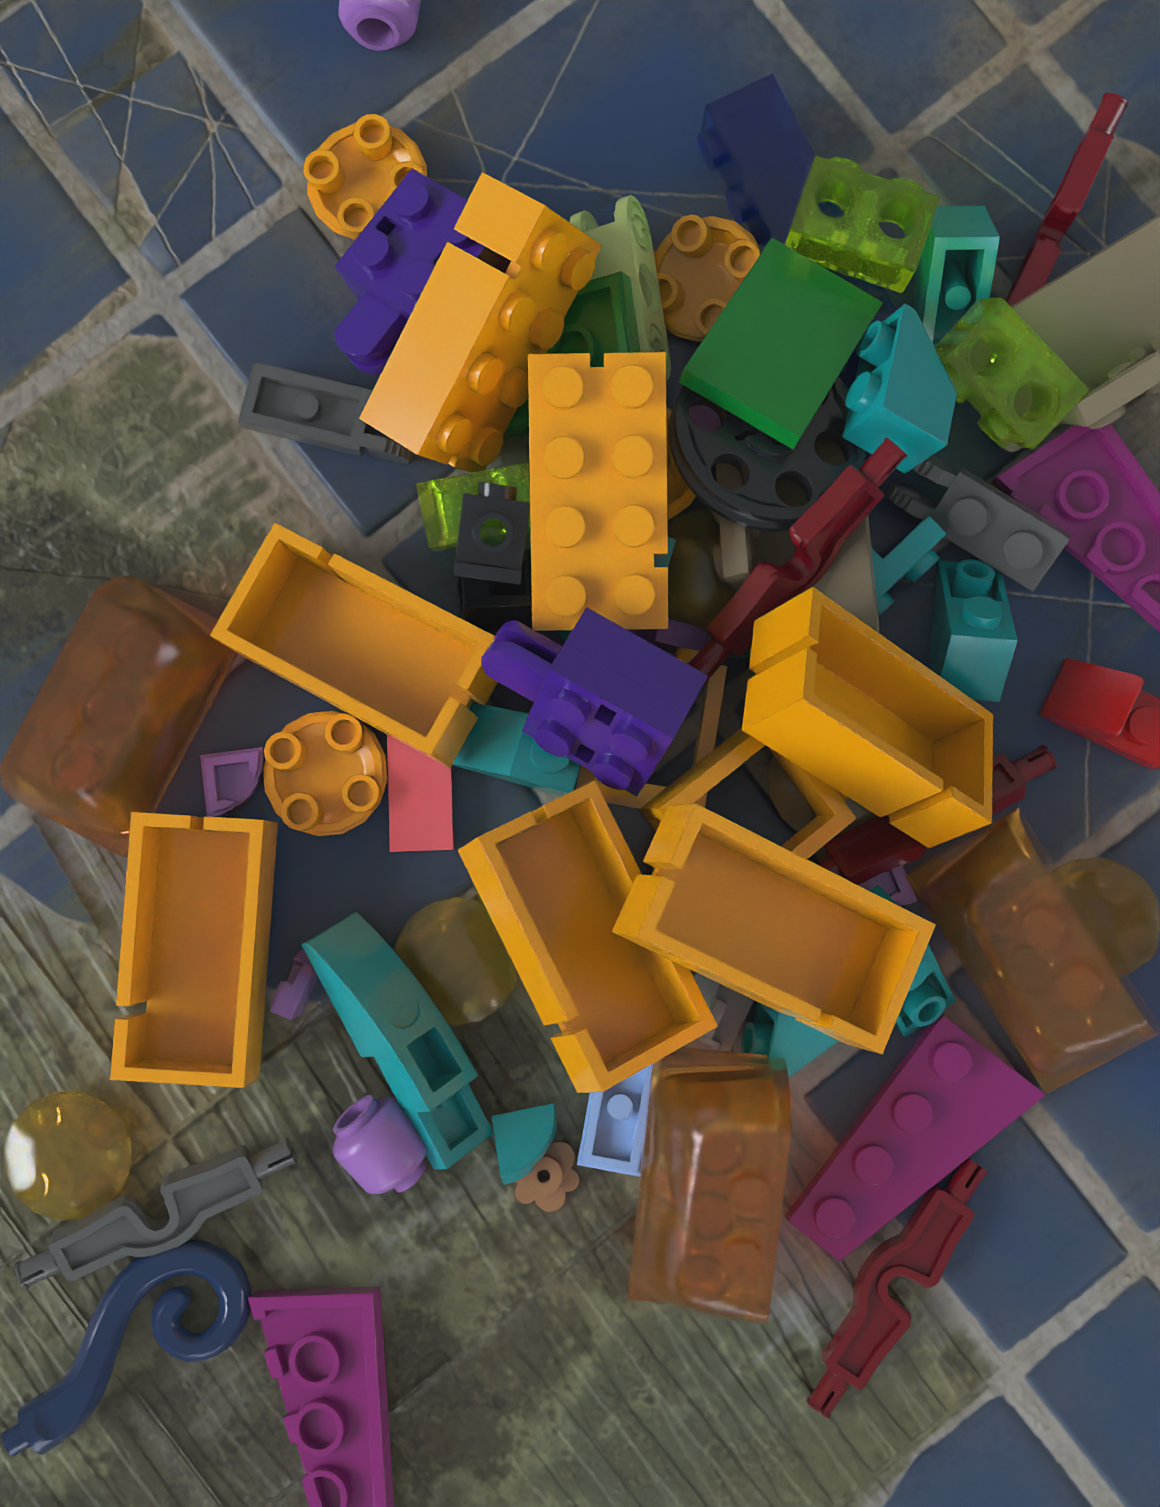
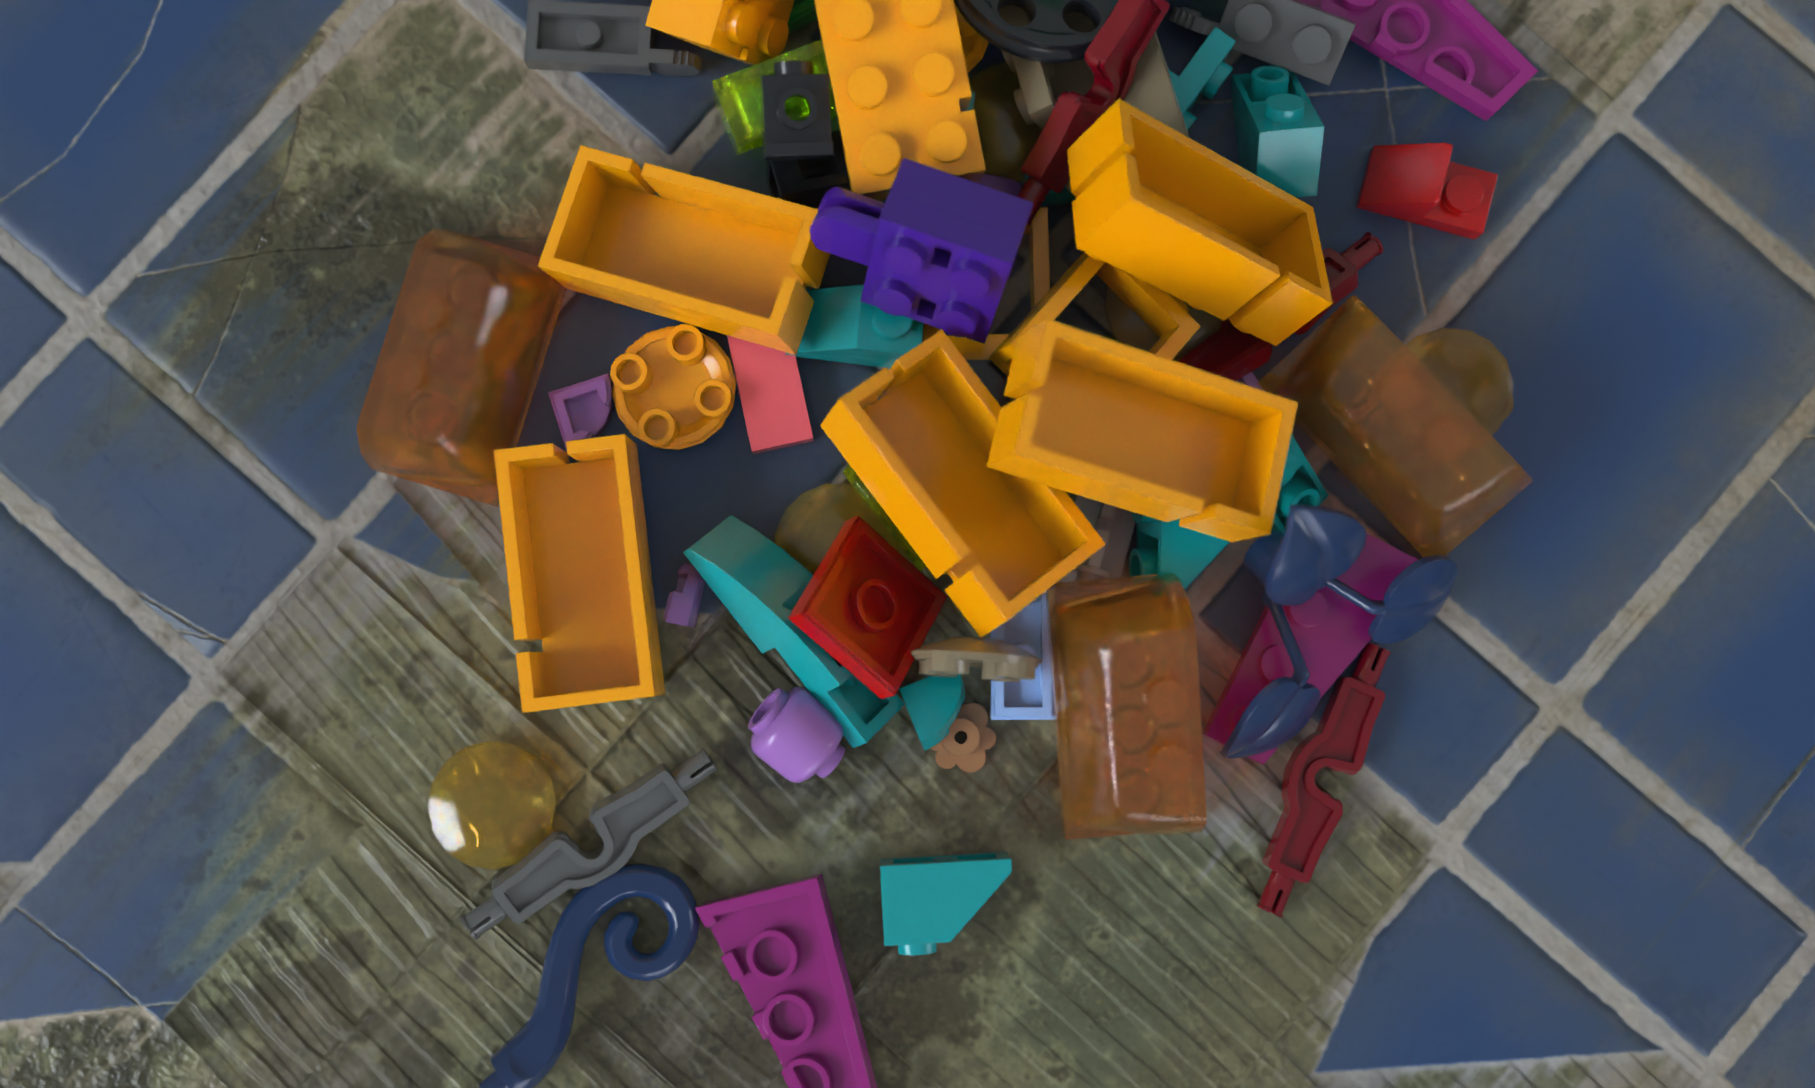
camera: 15 degrees left, 0 degrees up
(473, 1035) = (868, 607): none -> red tile
(488, 1332) = (936, 896): none -> teal slope
(549, 1102) = (997, 658): none -> dark tan dish
(910, 1080) = (1292, 567): none -> dark blue plant

